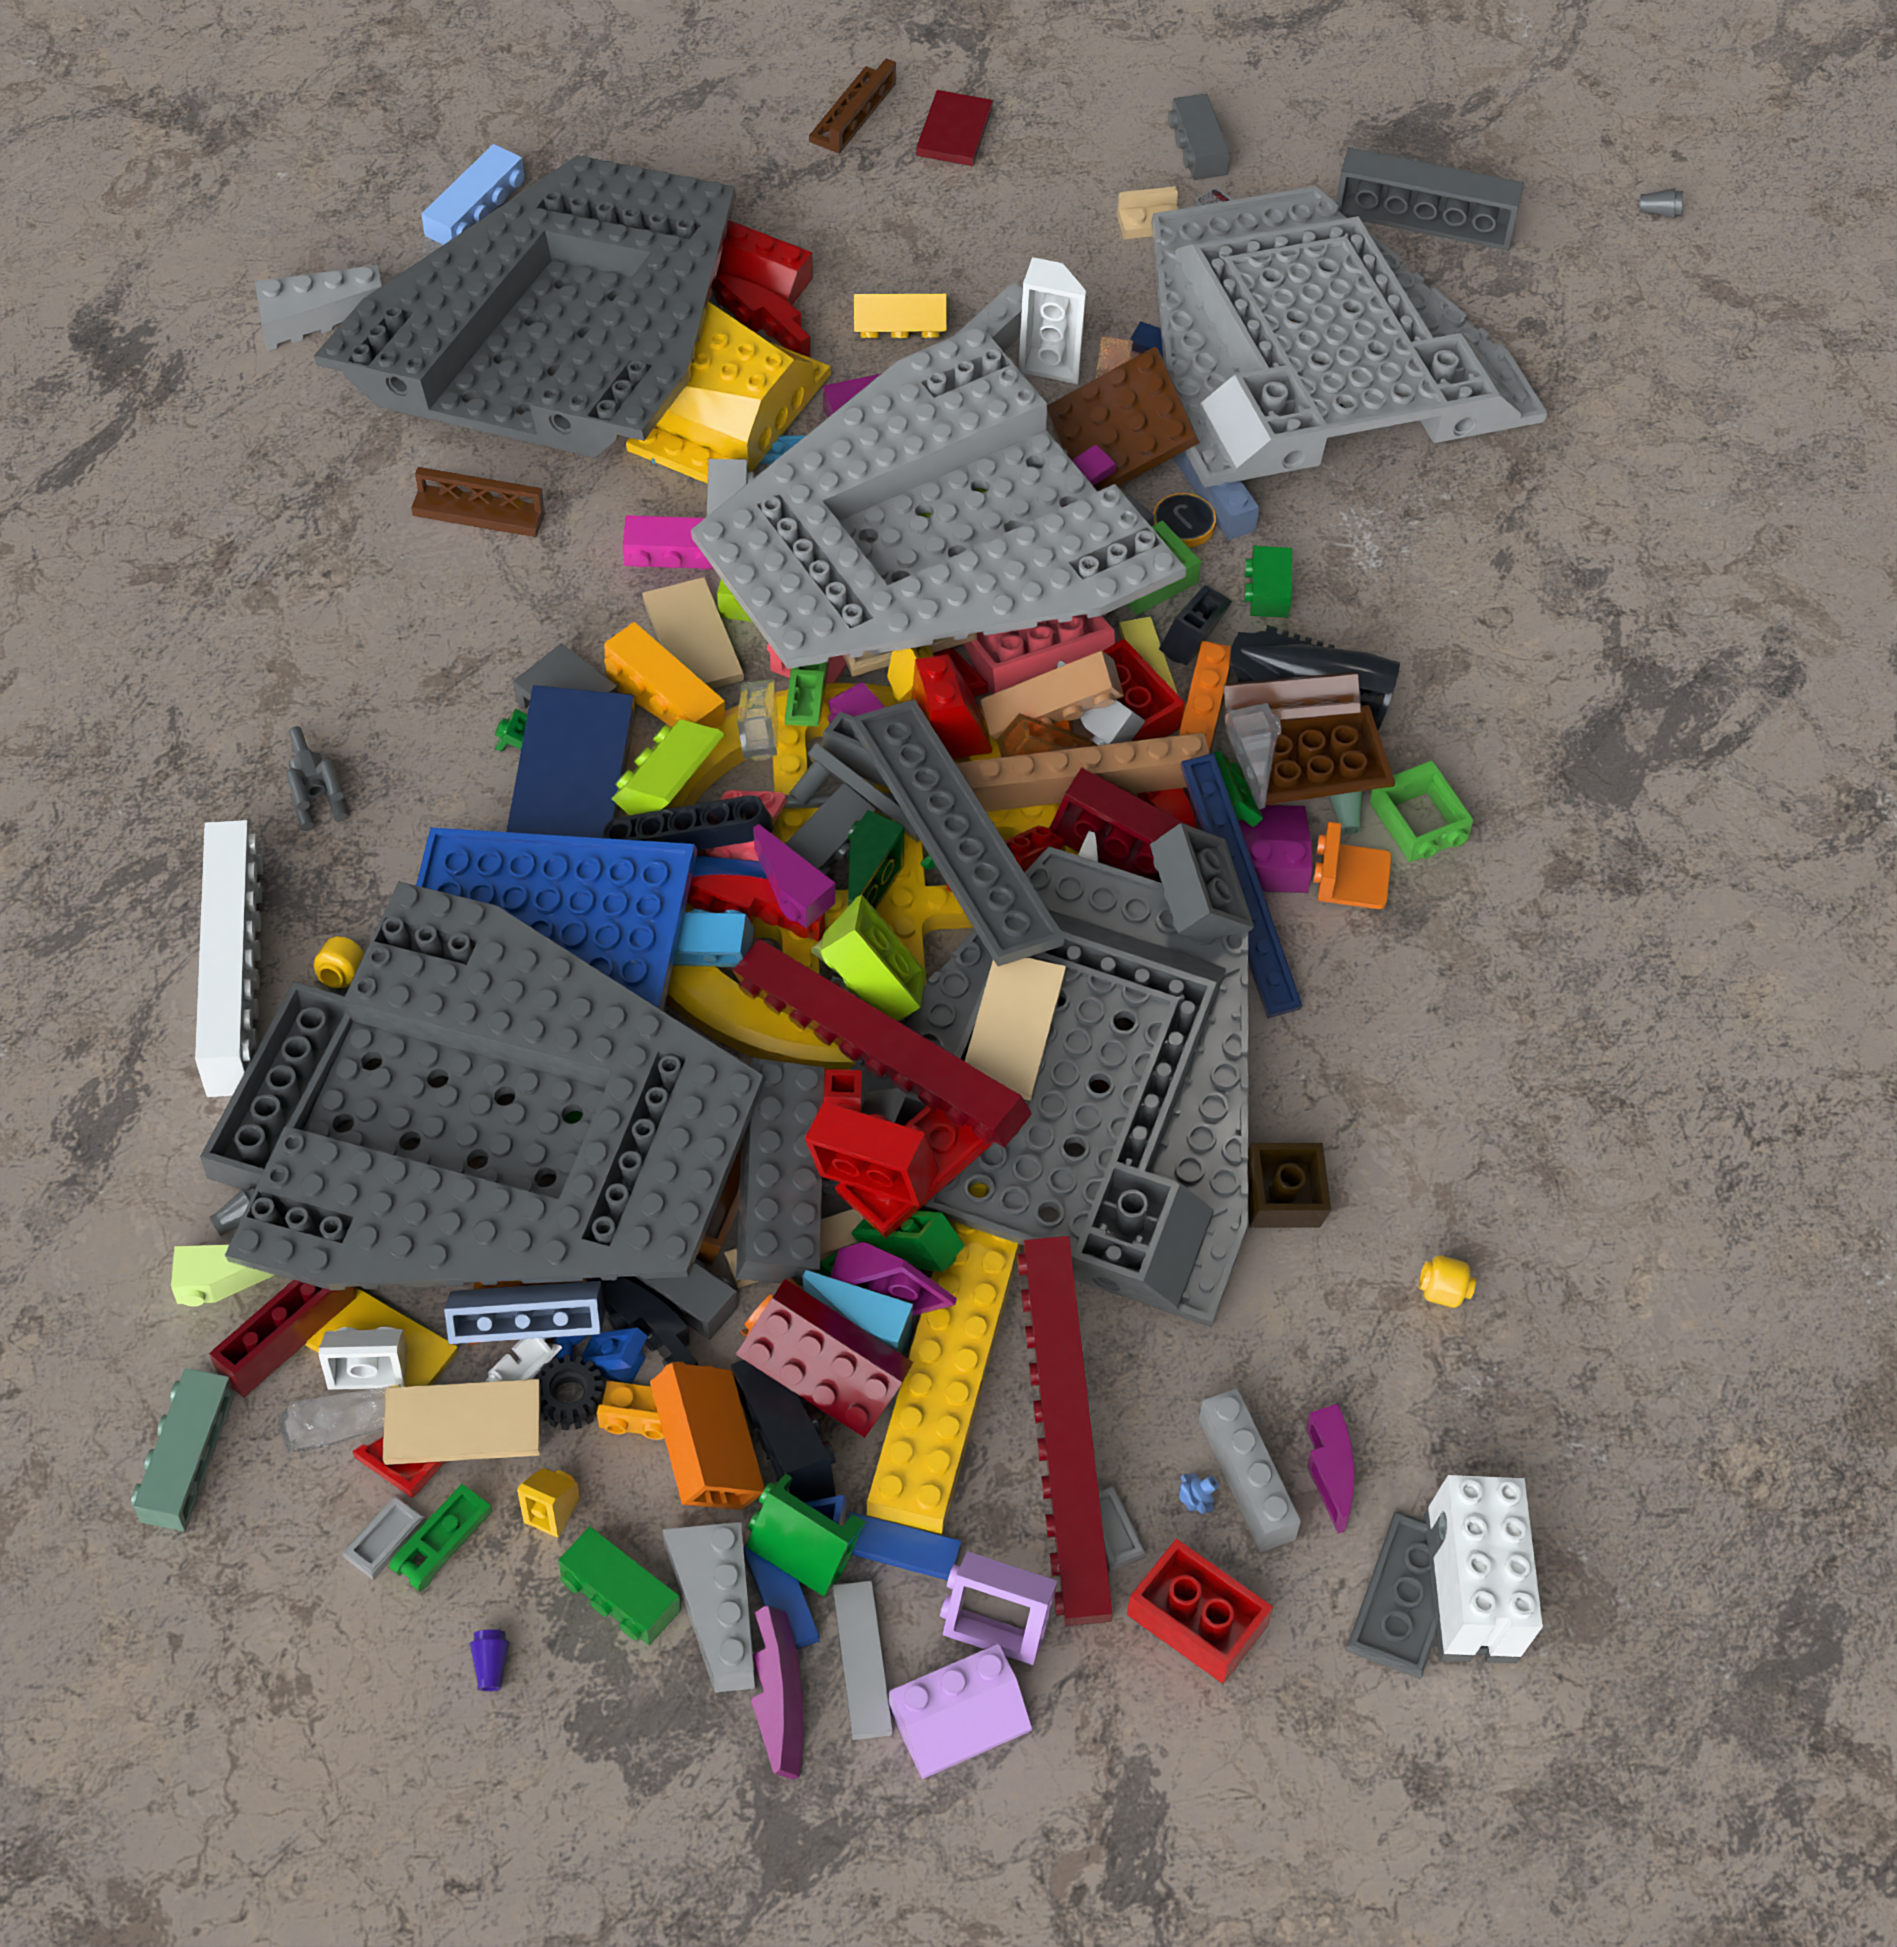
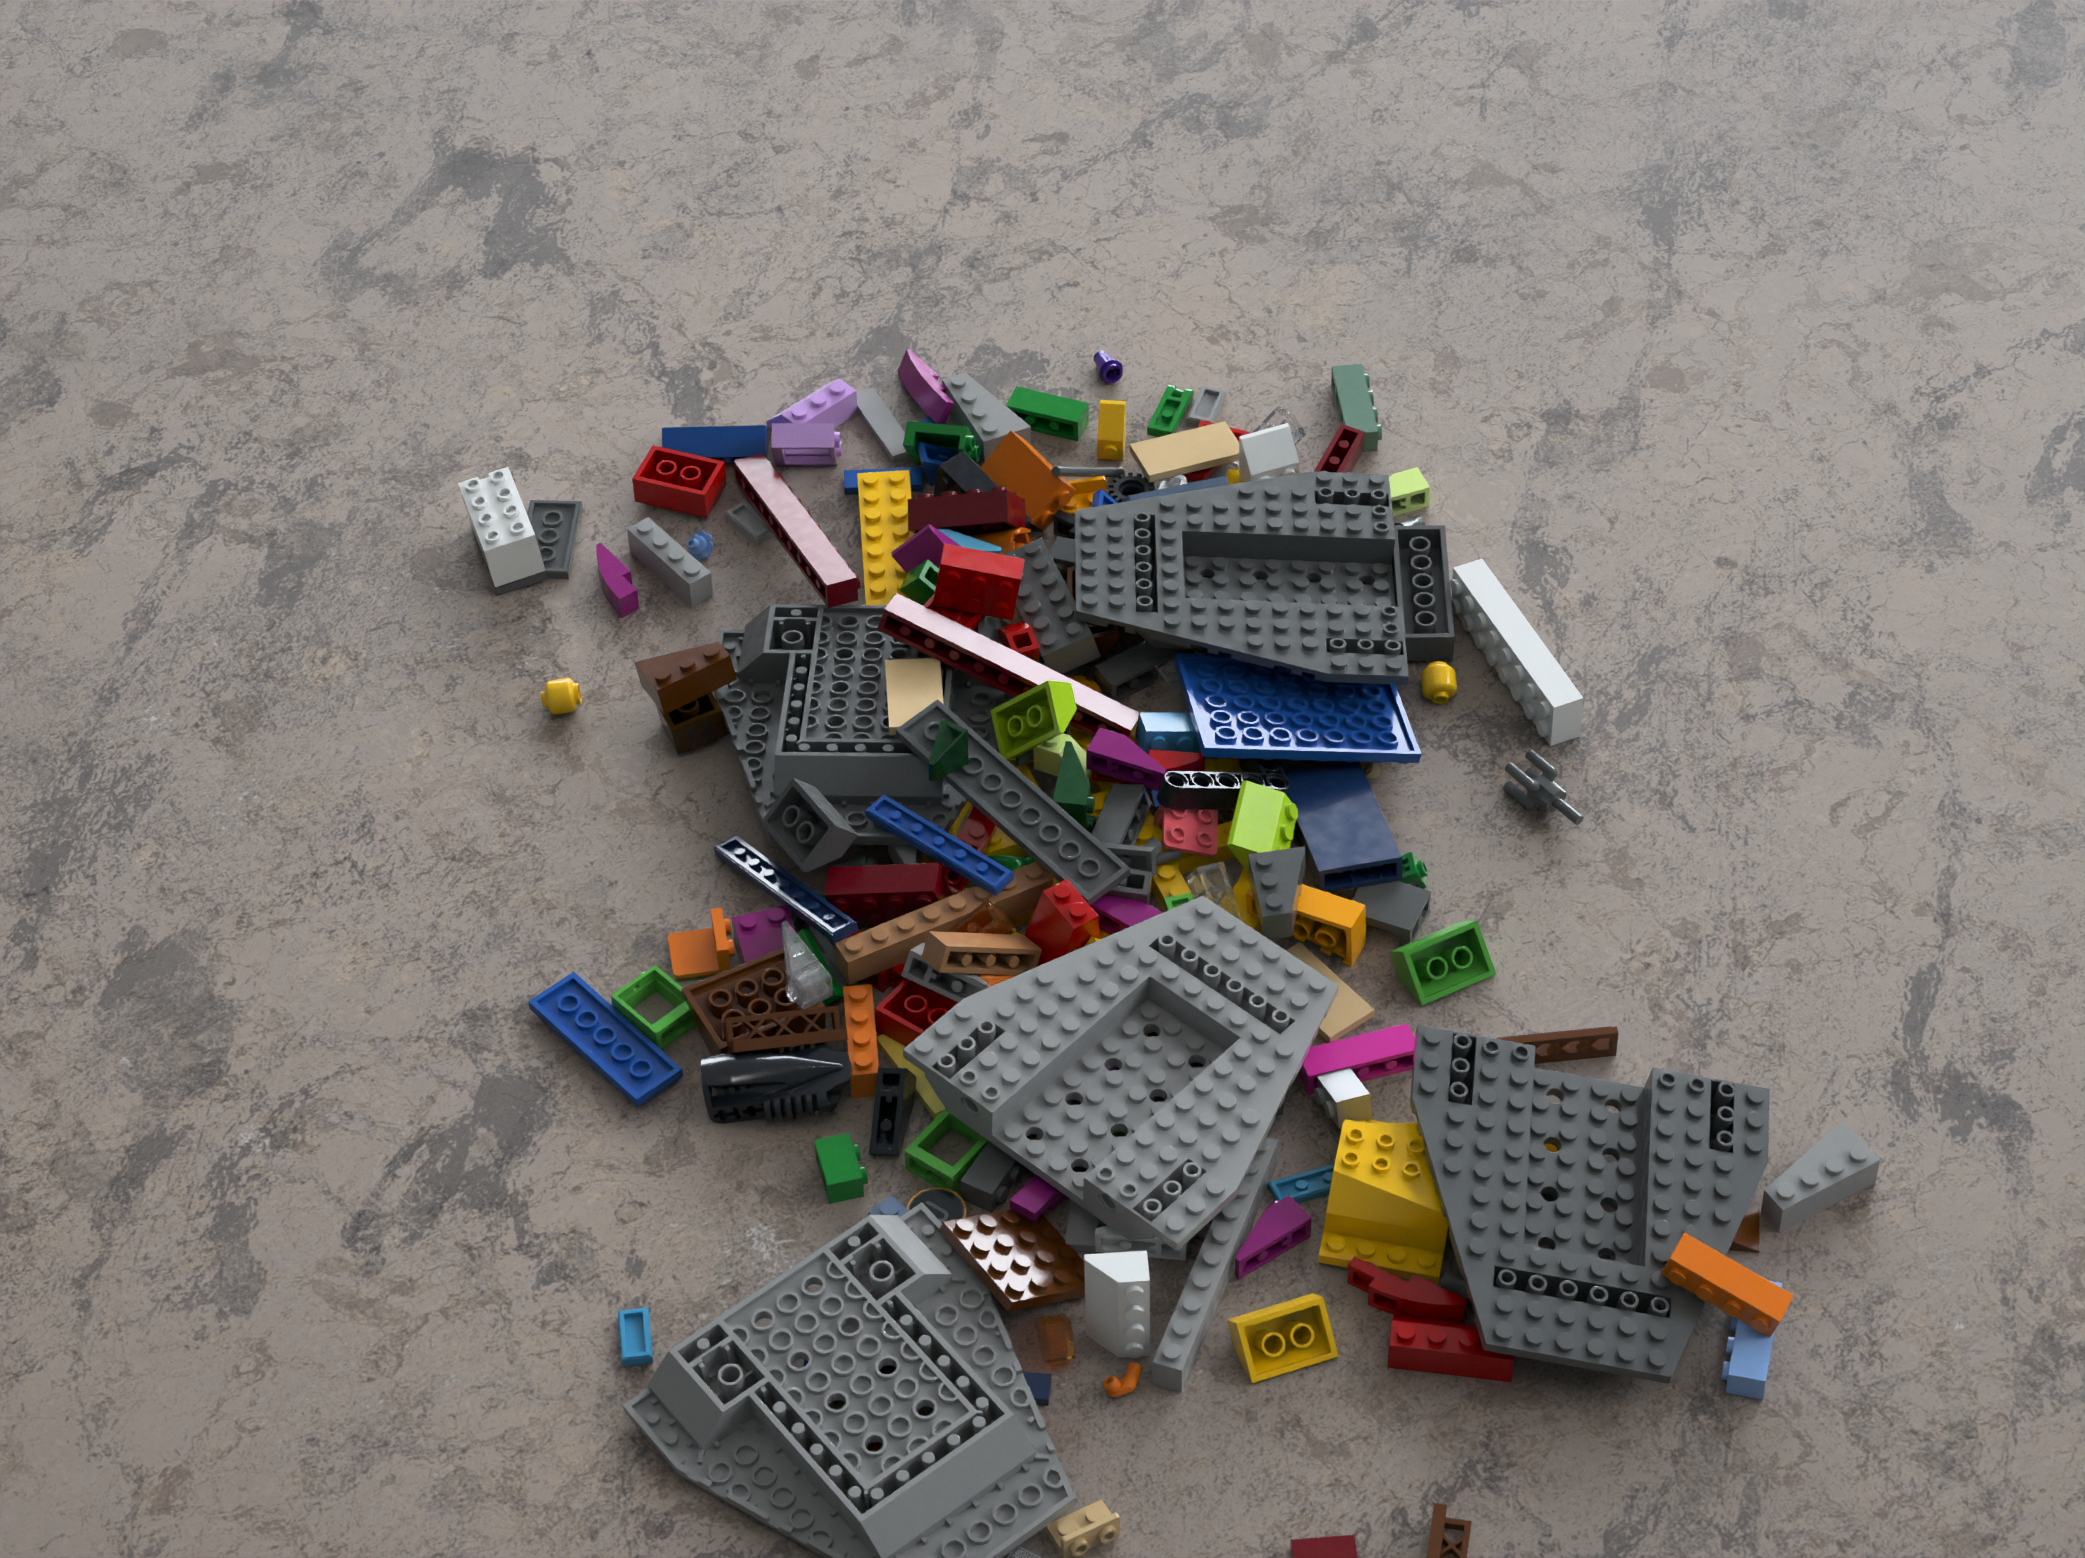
camera: 165 degrees right, 10 degrees down
(483, 190) = (1727, 1285): none -> orange brick
(542, 623) = (1443, 961): none -> bright green slope
(619, 1412) = (1082, 471): none -> dark grey bar
(694, 667) = (1276, 889): none -> dark grey wedge
(1015, 865) = (949, 750): none -> dark green slope
(1055, 829) = (939, 845): none -> blue tile
(1122, 1694) = (718, 441): none -> blue slope
(1290, 1195) = (685, 675): none -> reddish brown wedge
(1503, 819) = (605, 1039): none -> blue plate
(1518, 488) = (635, 1337): none -> dark azure tile

